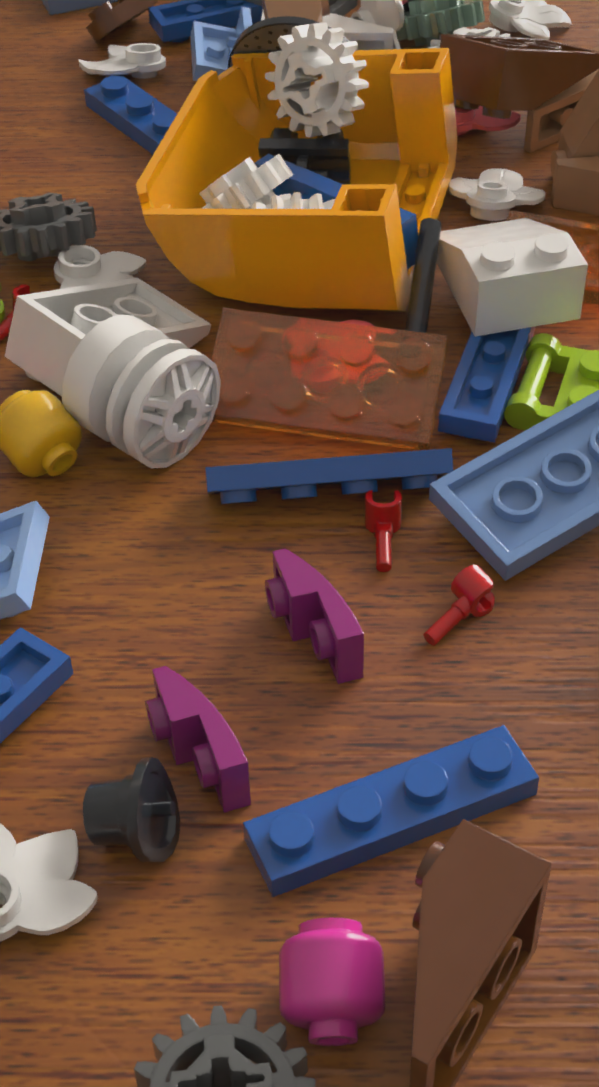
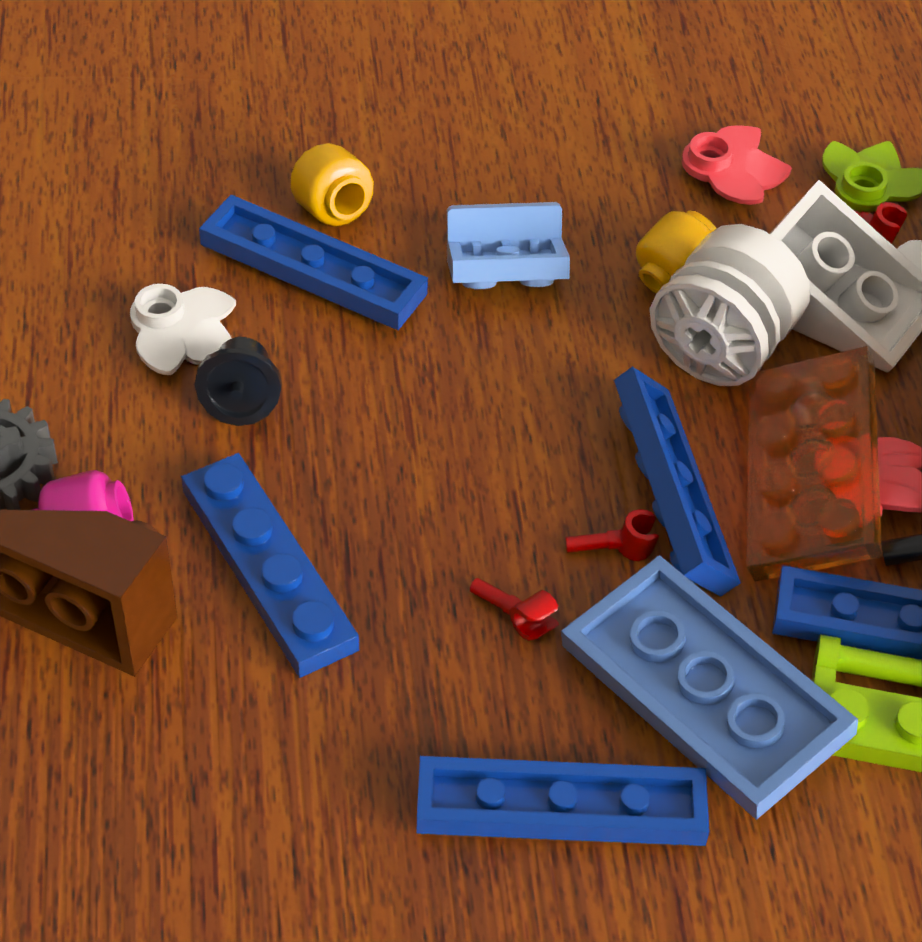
camera: 80 degrees right, 5 degrees up
(199, 735) = (310, 424): magenta slope -> none
(318, 612) = (460, 495): magenta slope -> none

